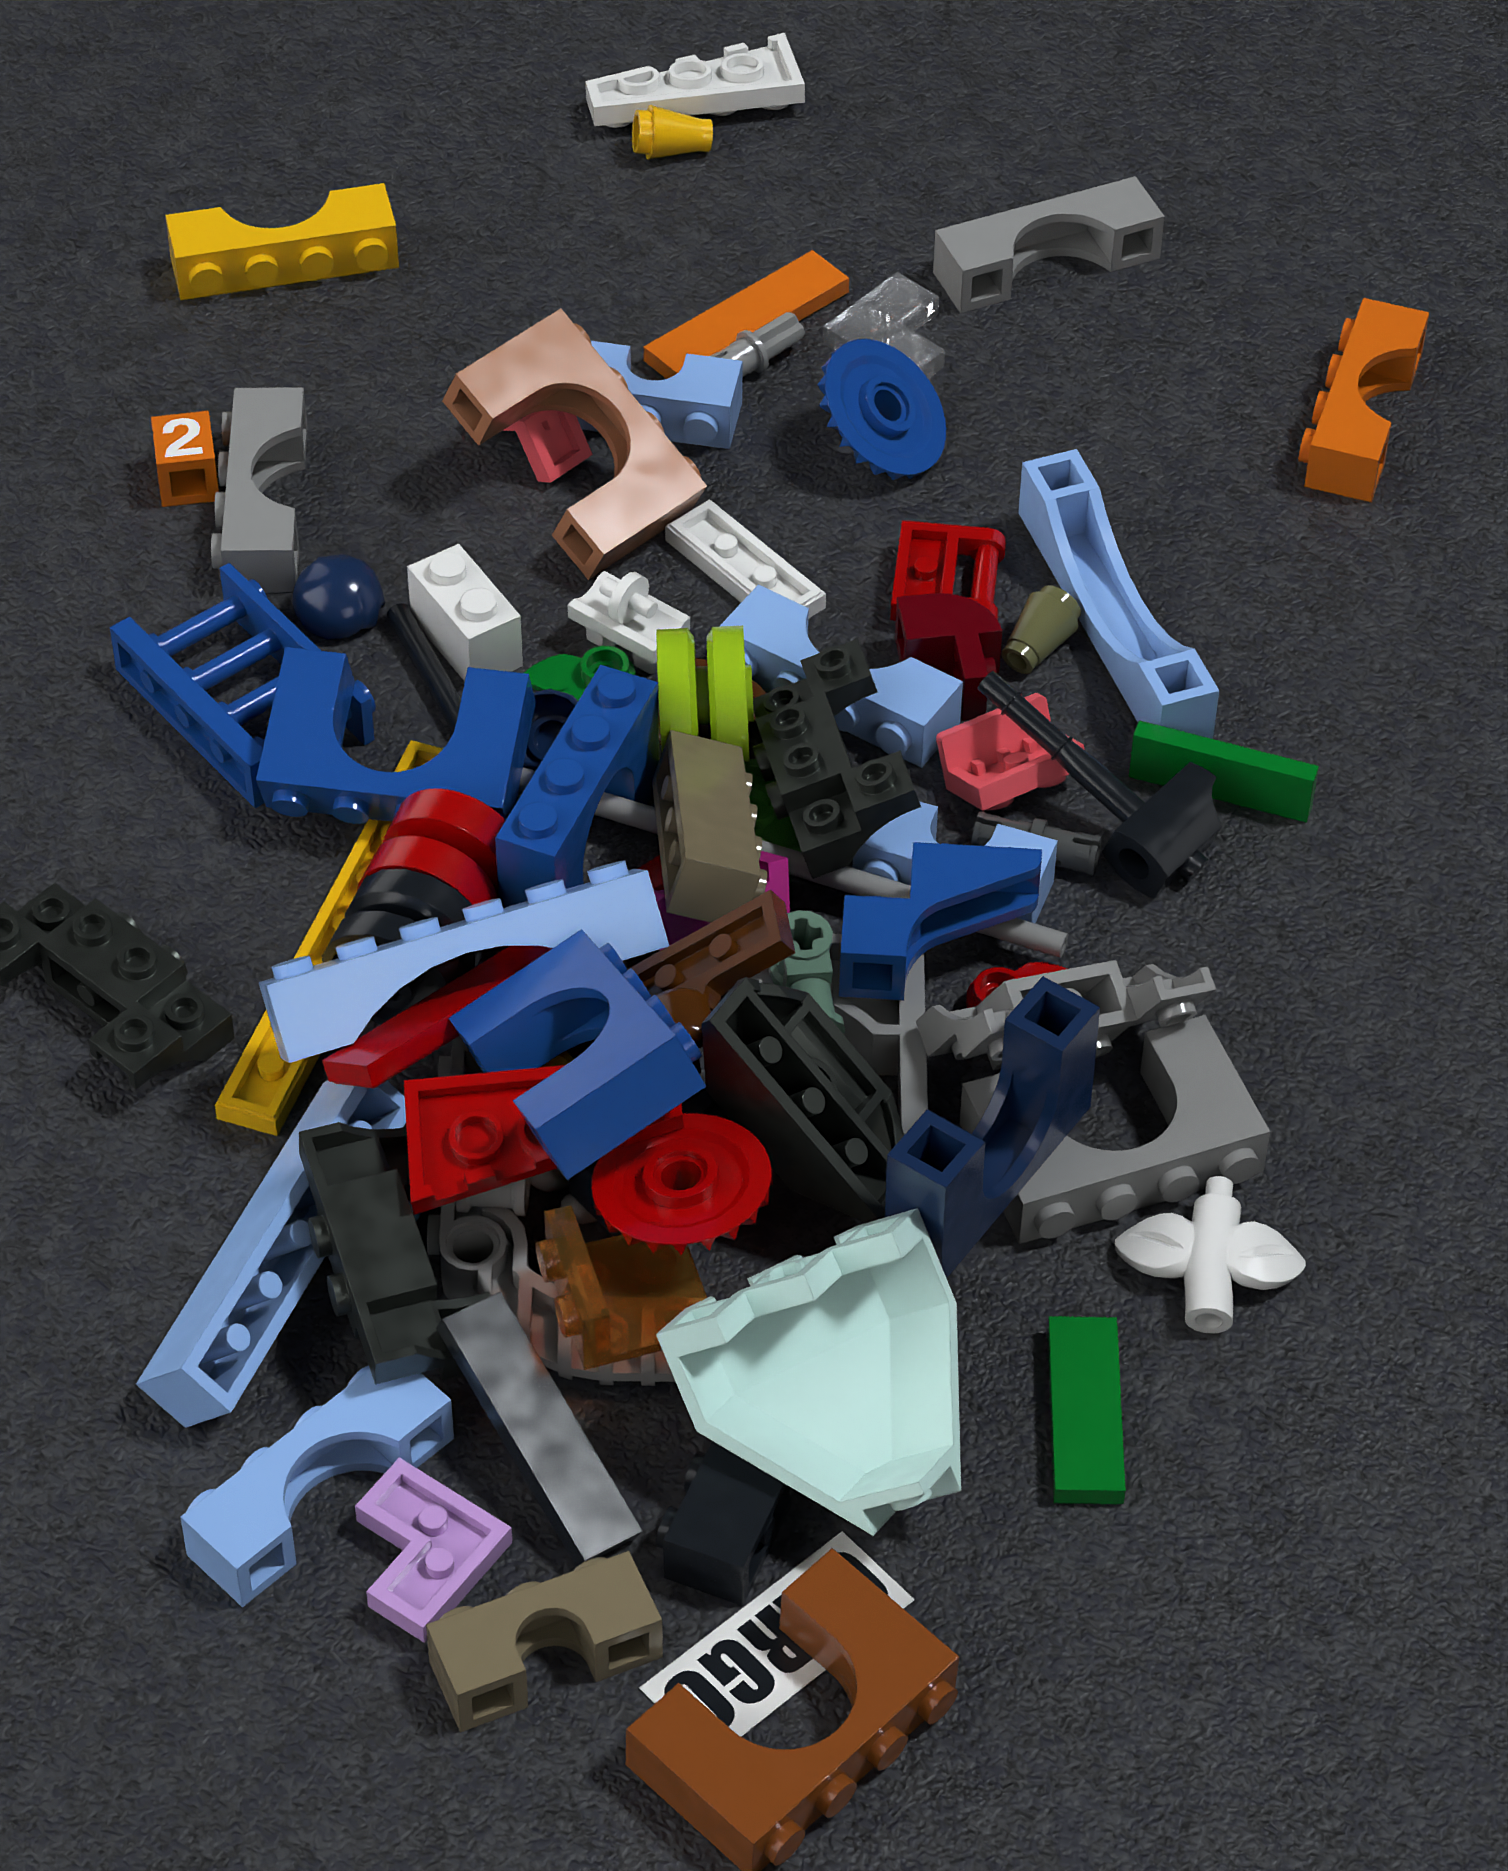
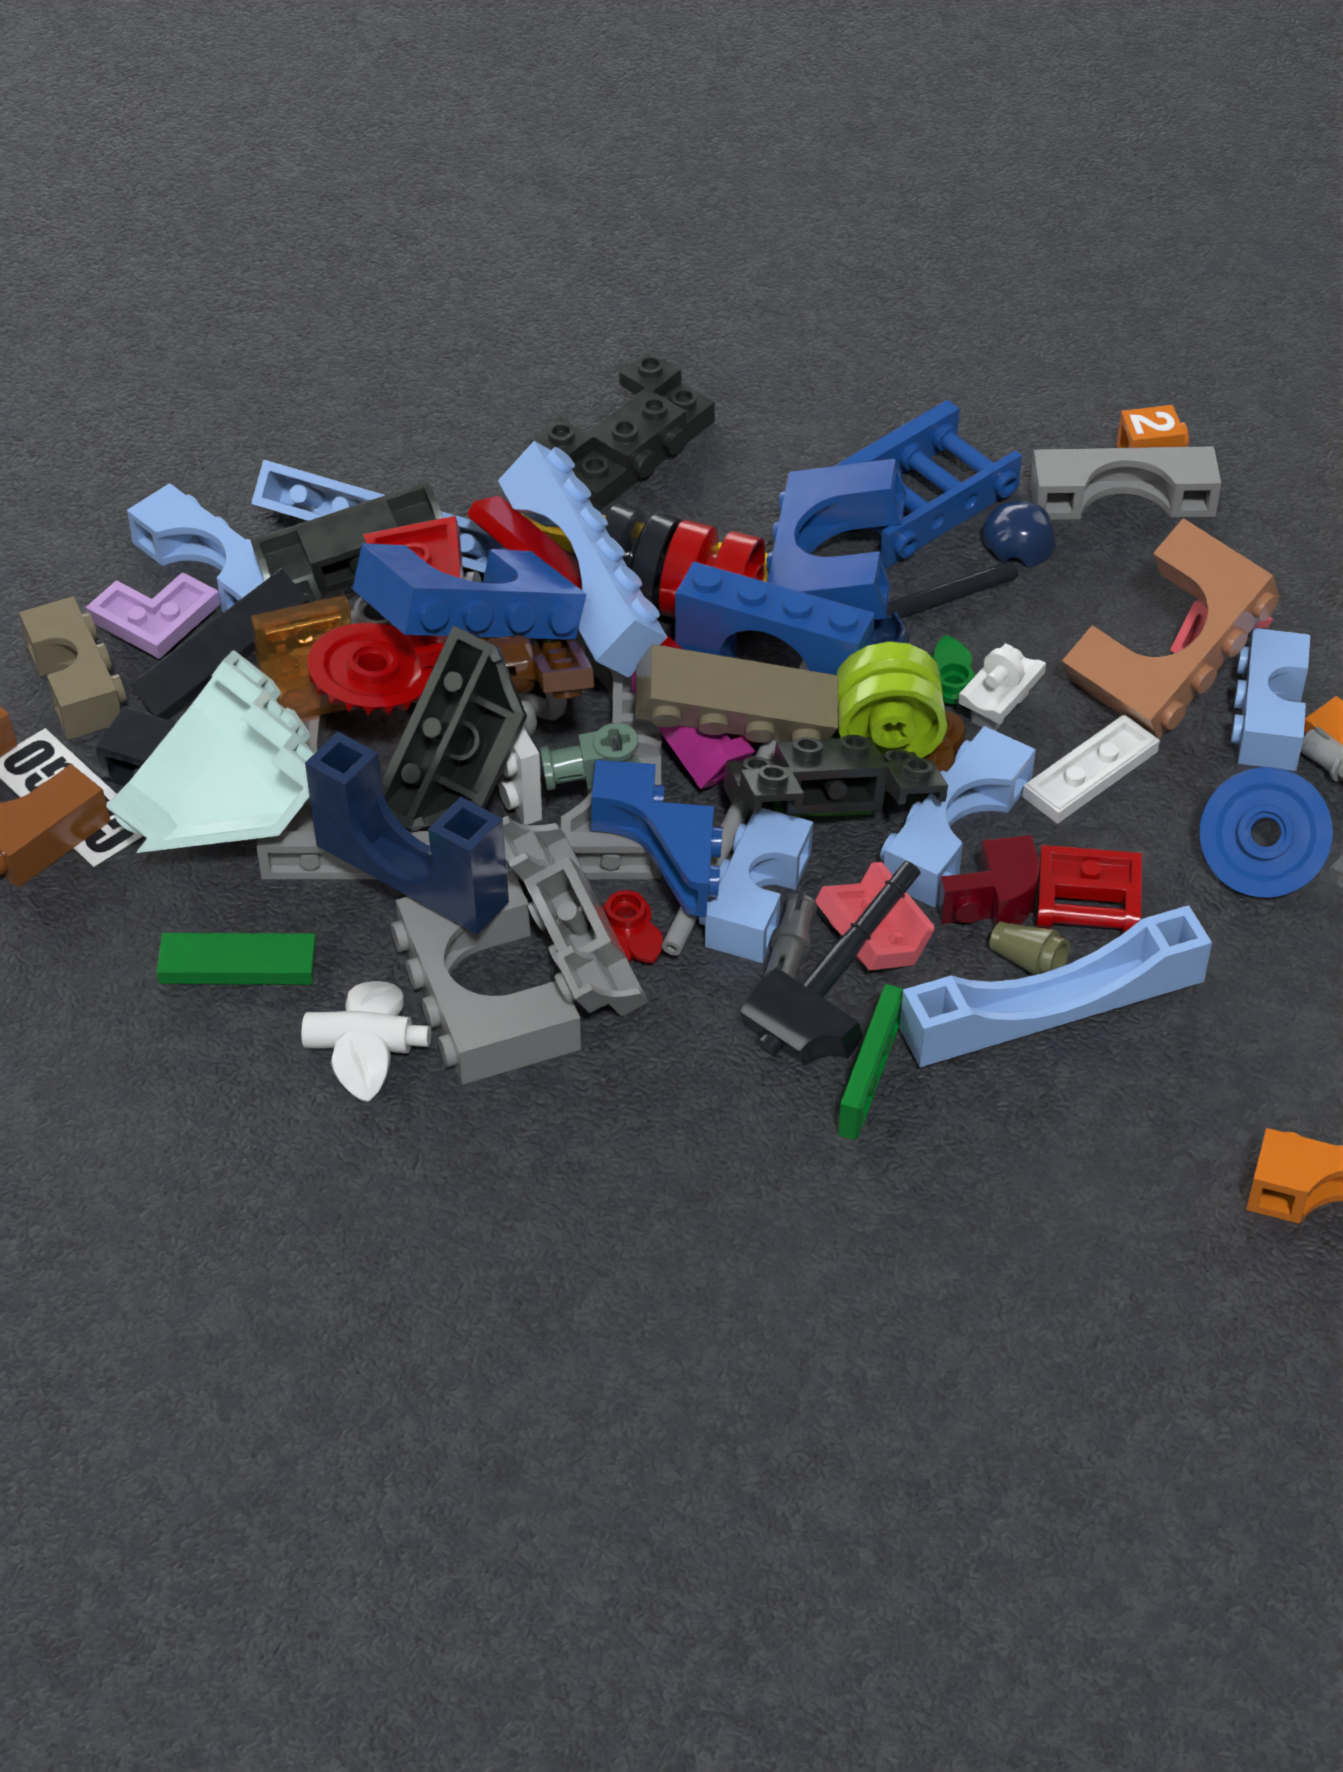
camera: 90 degrees right, 0 degrees up
(464, 613) = (996, 593): white brick -> none

